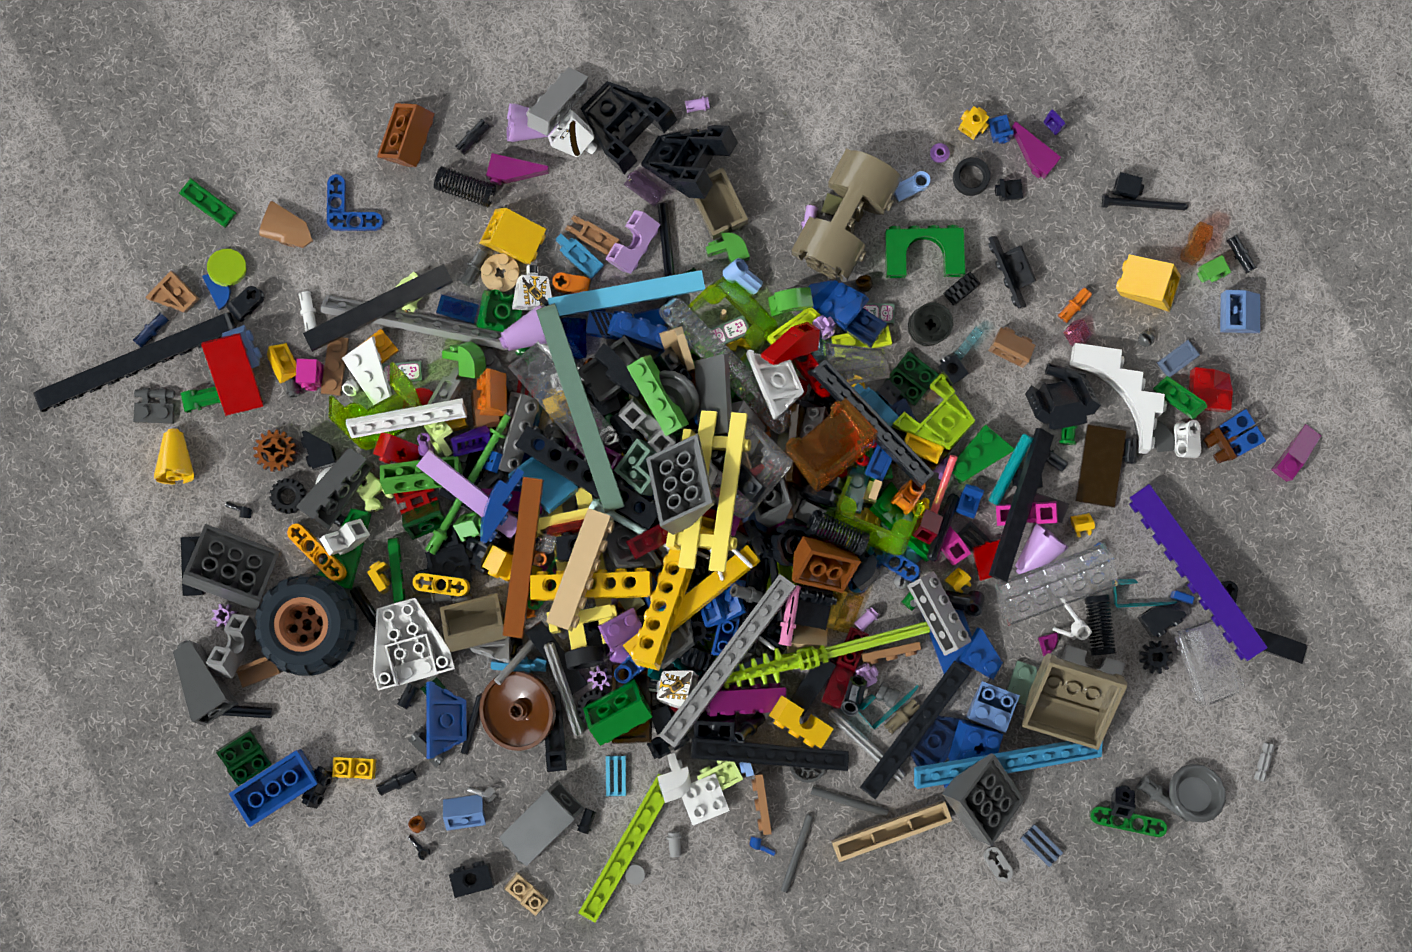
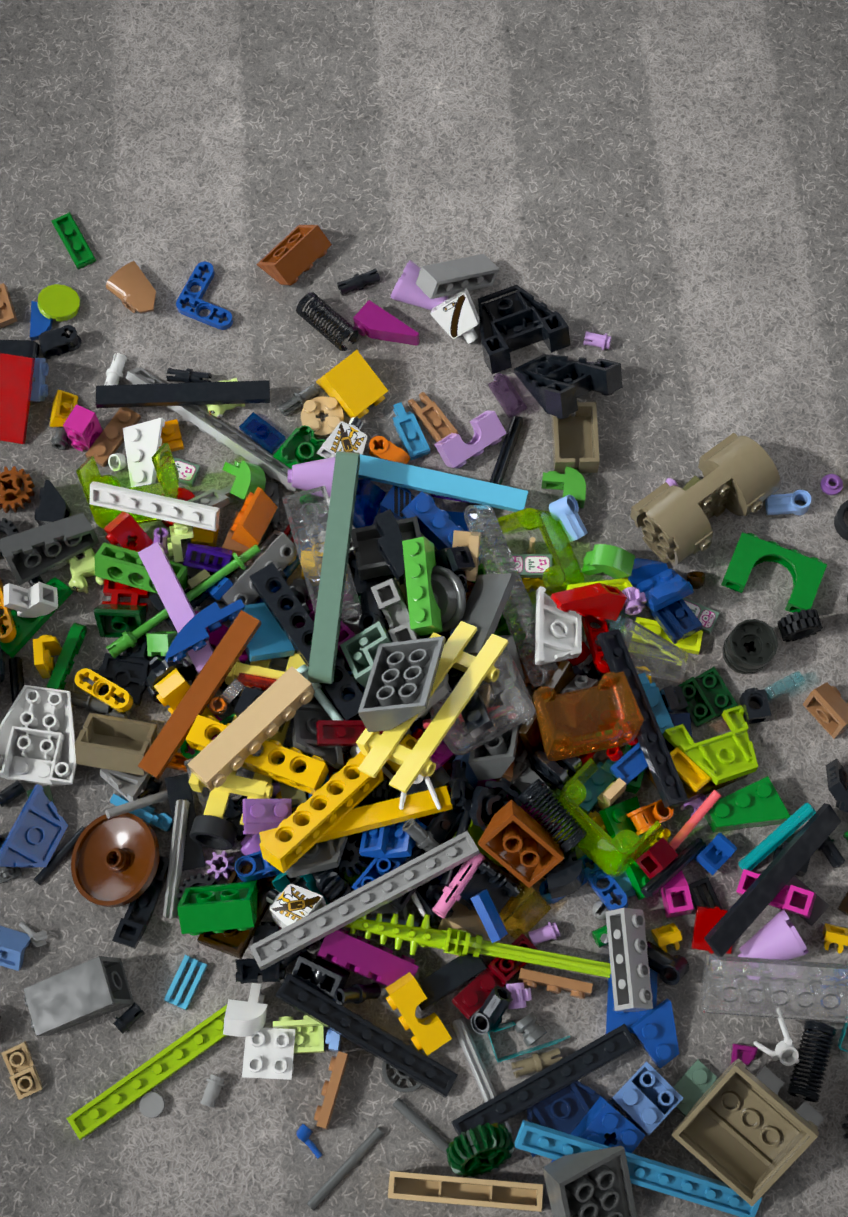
camera: 25 degrees right, 15 degrees down
(372, 286) = (187, 376): none -> black pin
(471, 462) = (197, 579): none -> olive tile
(677, 358) = (460, 559): none -> black tile
(822, 628) = (489, 916): none -> blue tile
(889, 798) = (480, 1149): none -> dark green gear

